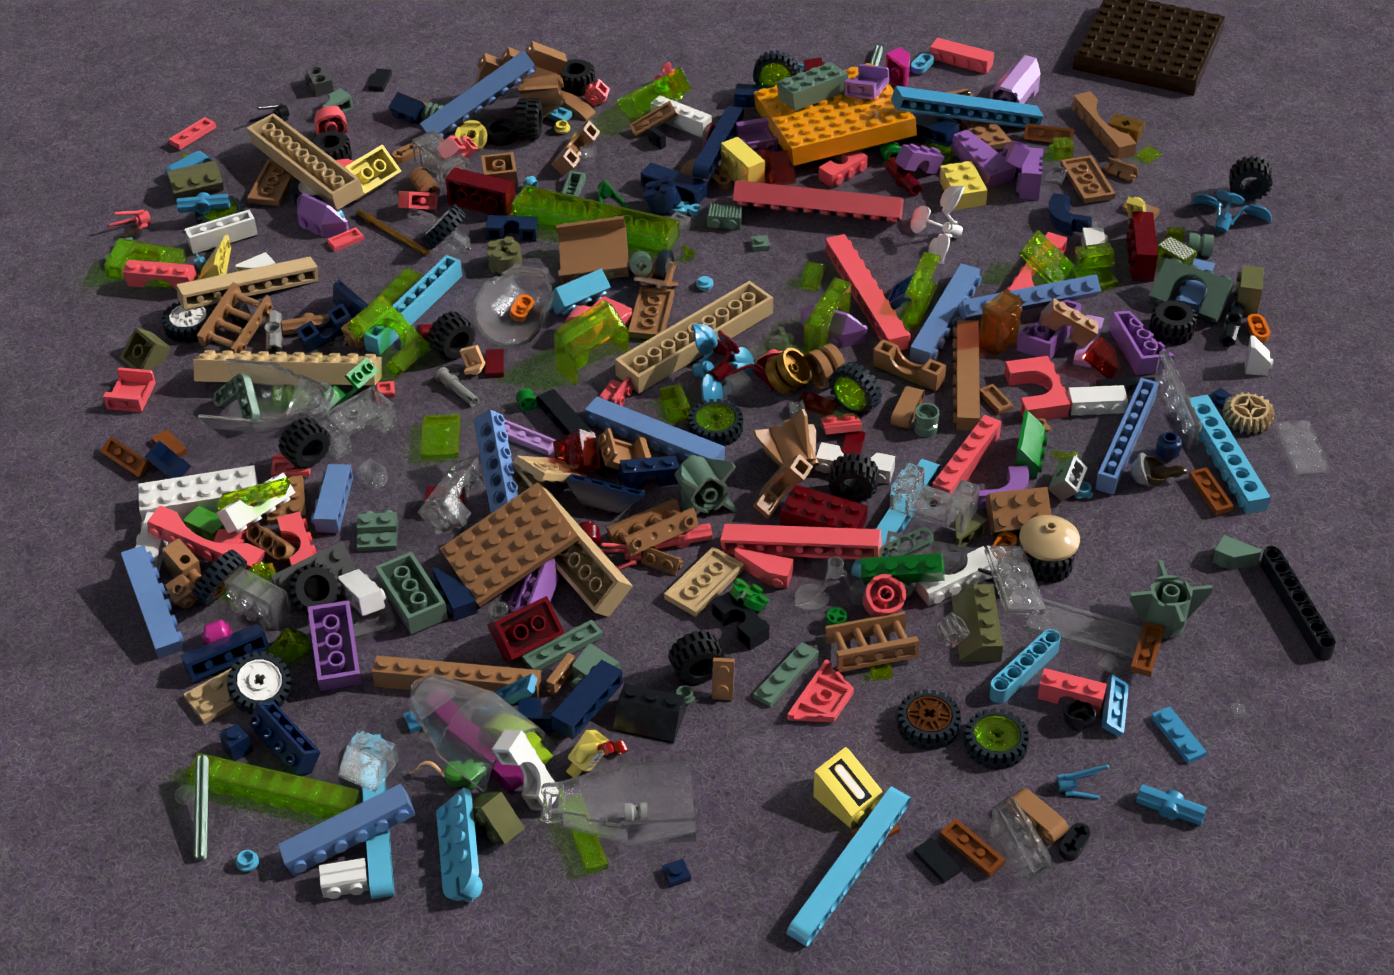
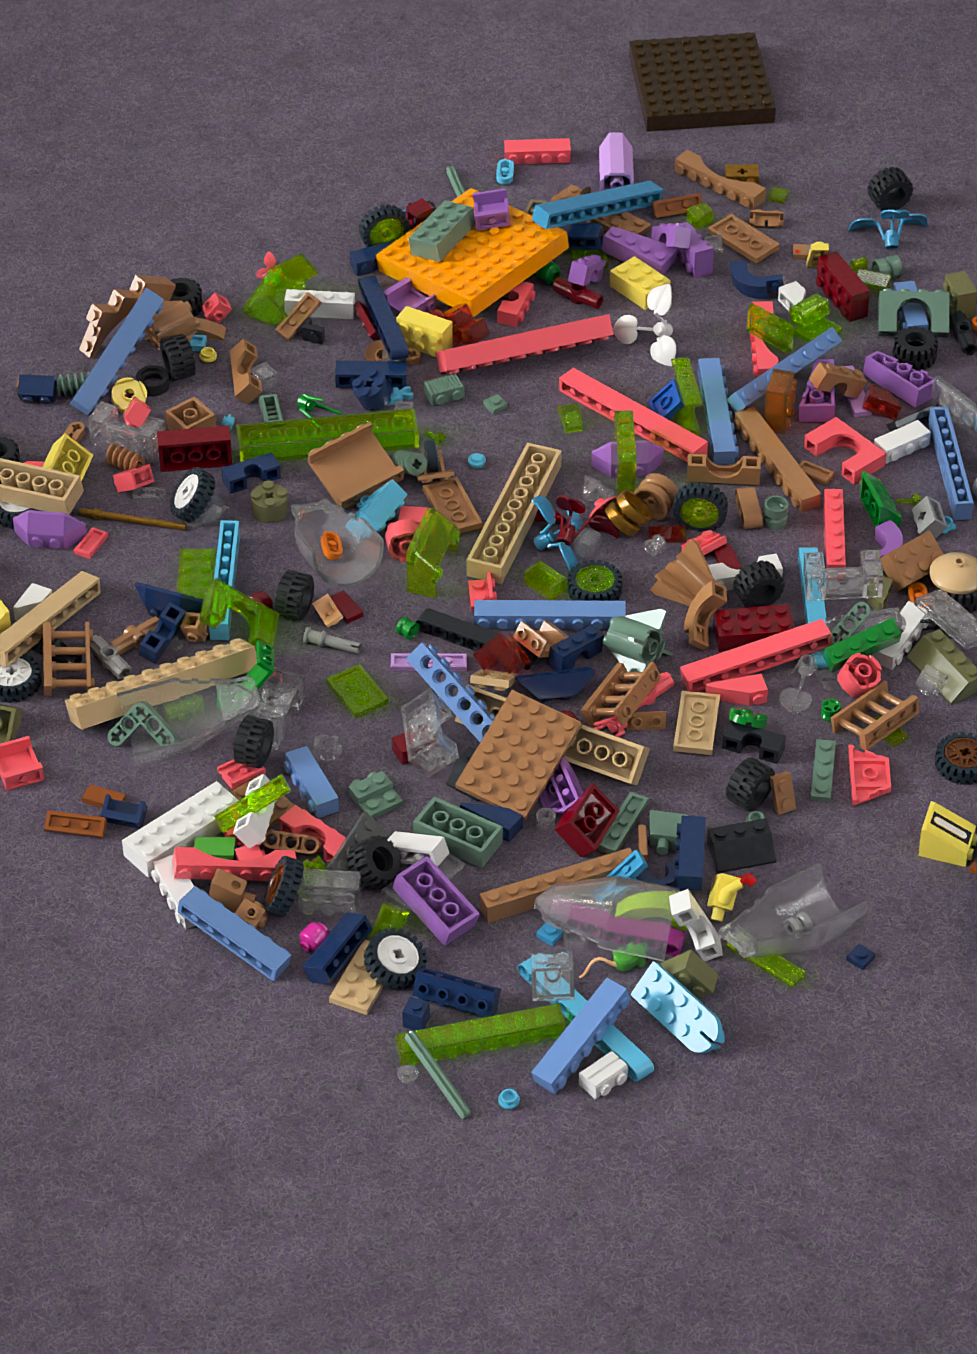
camera: 30 degrees left, 0 degrees up
(898, 63) = (493, 178): dark pink slope -> none

